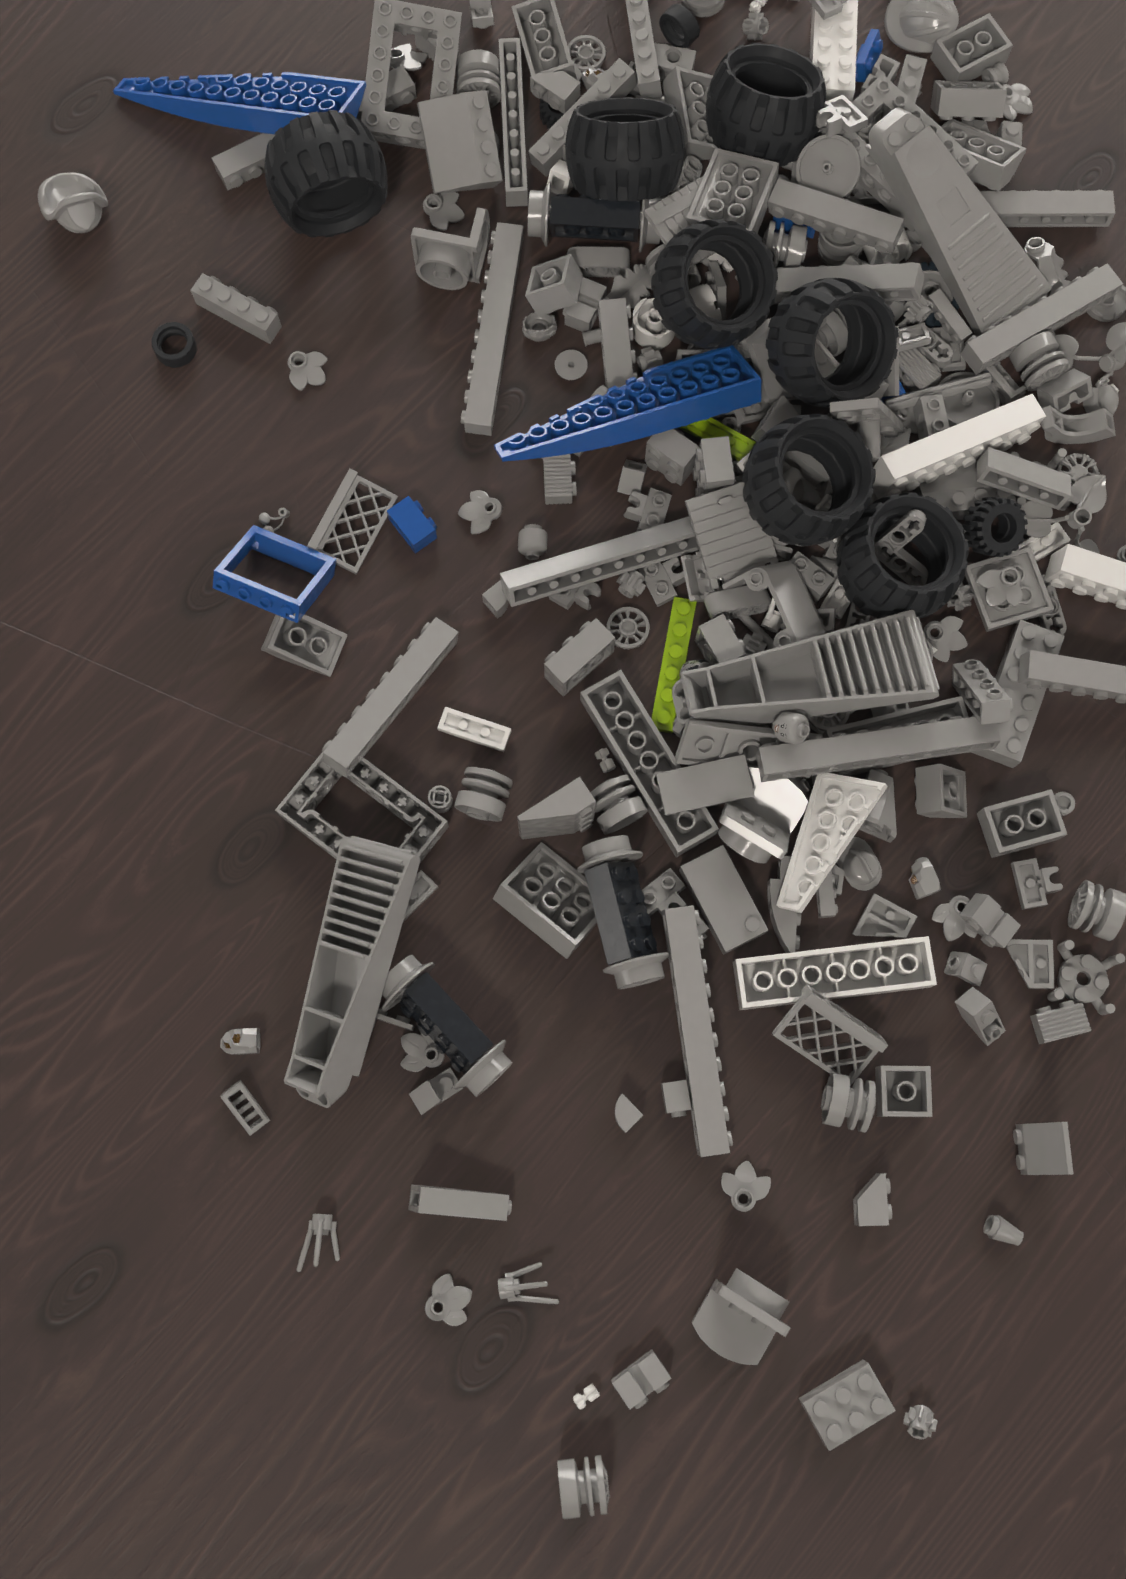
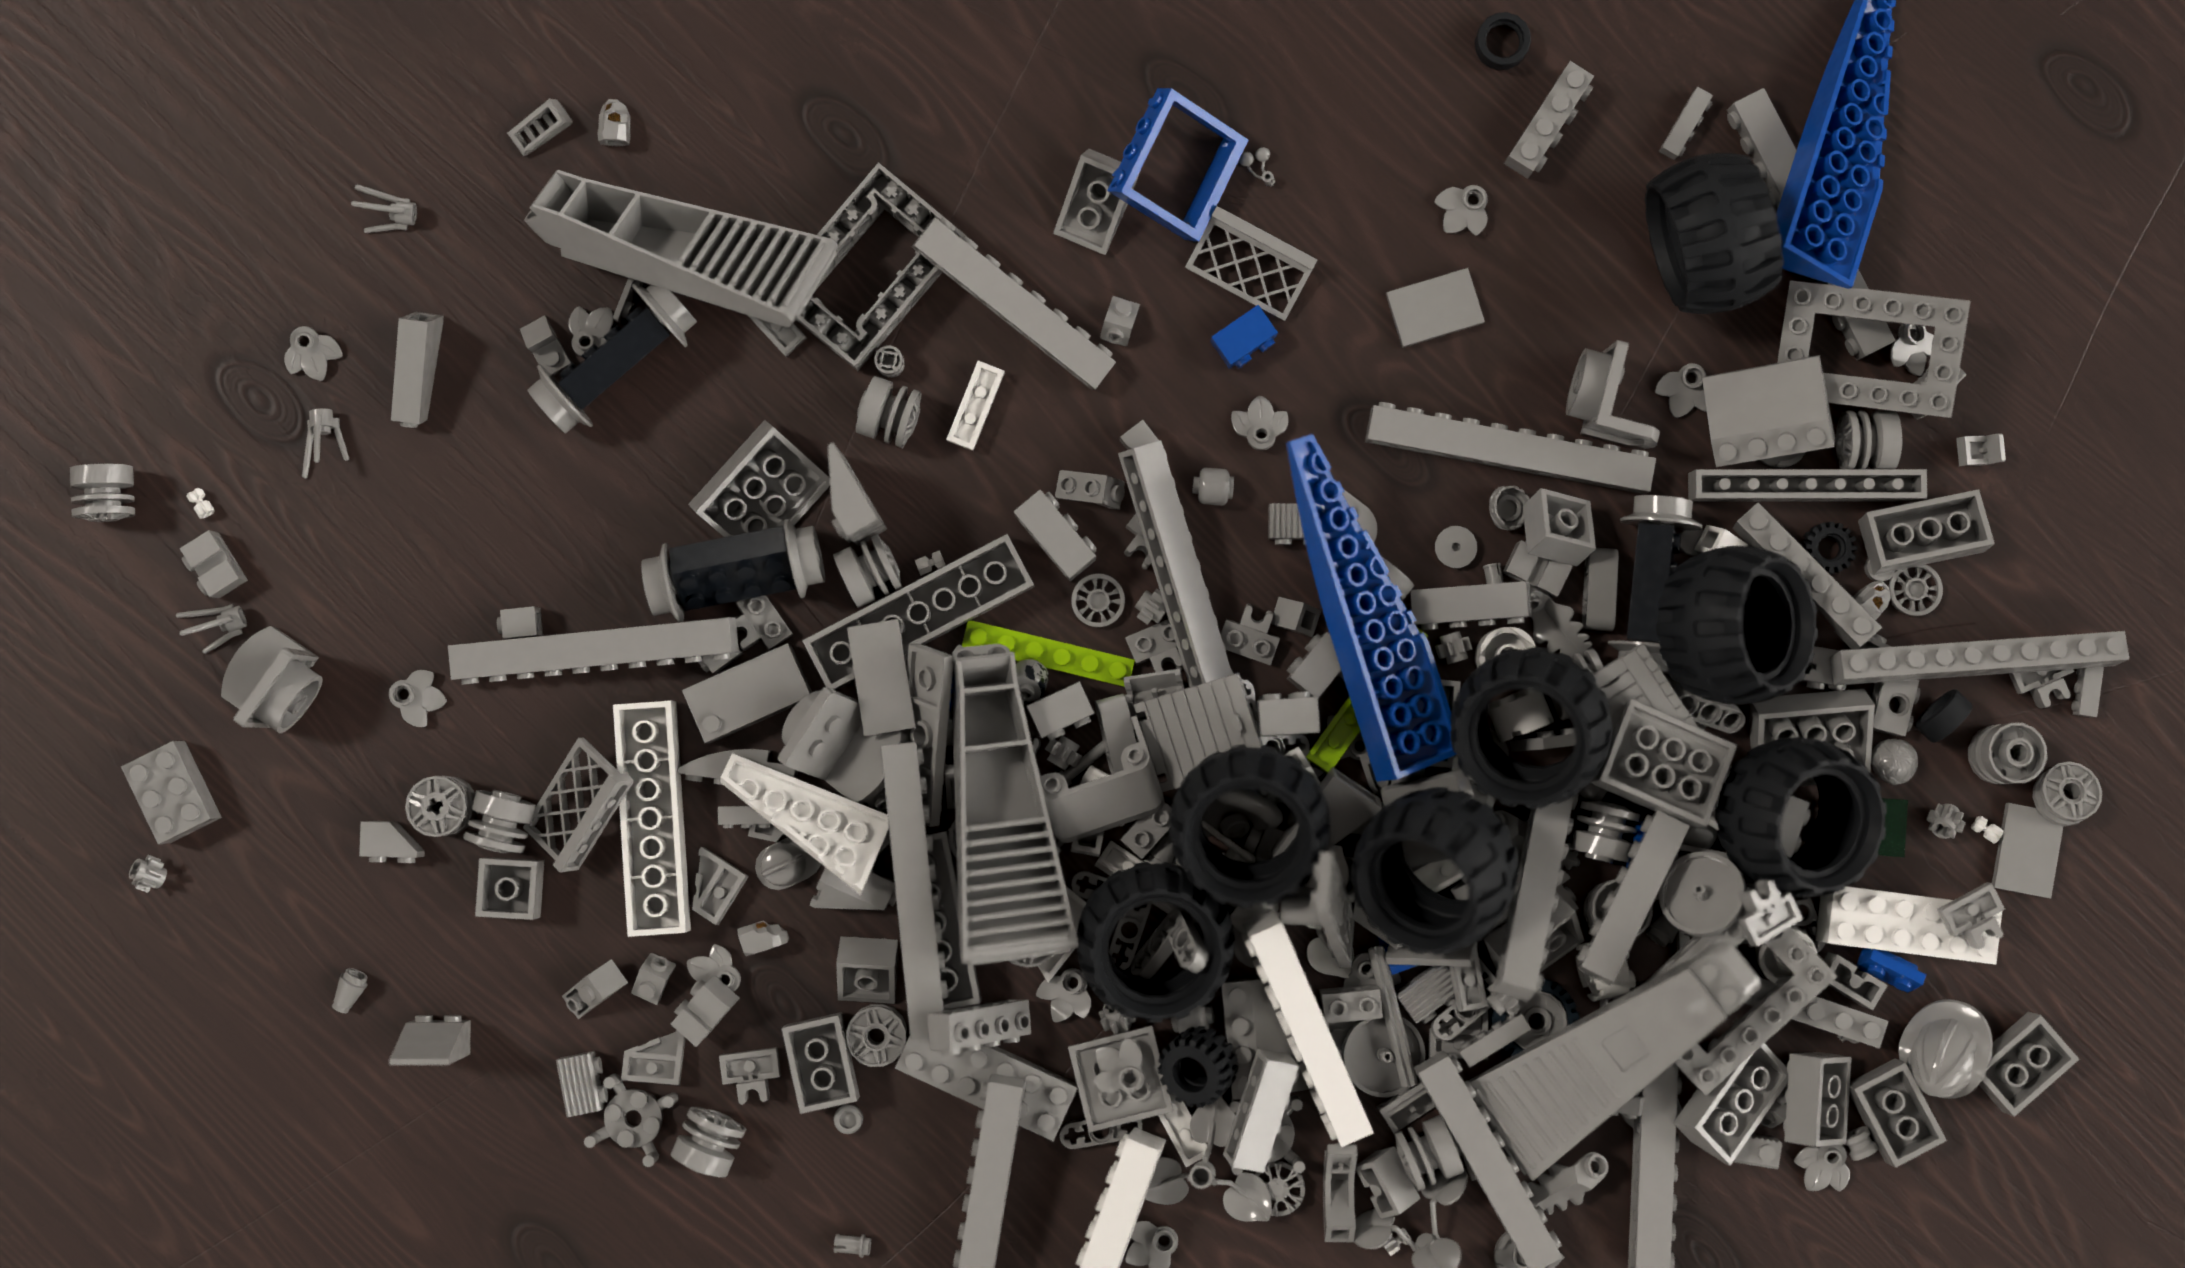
camera: 95 degrees right, 10 degrees up
(238, 215) = (1686, 122): none -> light grey piece
(384, 387) = (1435, 307): none -> light grey tile
(401, 619) = (1119, 321): none -> light grey bracket
(538, 637) = (1090, 488): none -> light grey bracket
(556, 89) = (1848, 544): light grey slope -> none
(626, 1113) = (505, 564): light grey brick -> none
(688, 1360) = (230, 620): none -> light grey plant
(709, 59) = (1894, 761): none -> light grey hair
(791, 727) = (936, 782): light grey head -> none
(824, 1153) = (453, 815): none -> light grey wheel
(1002, 771) = (871, 1052): none -> light grey wheel

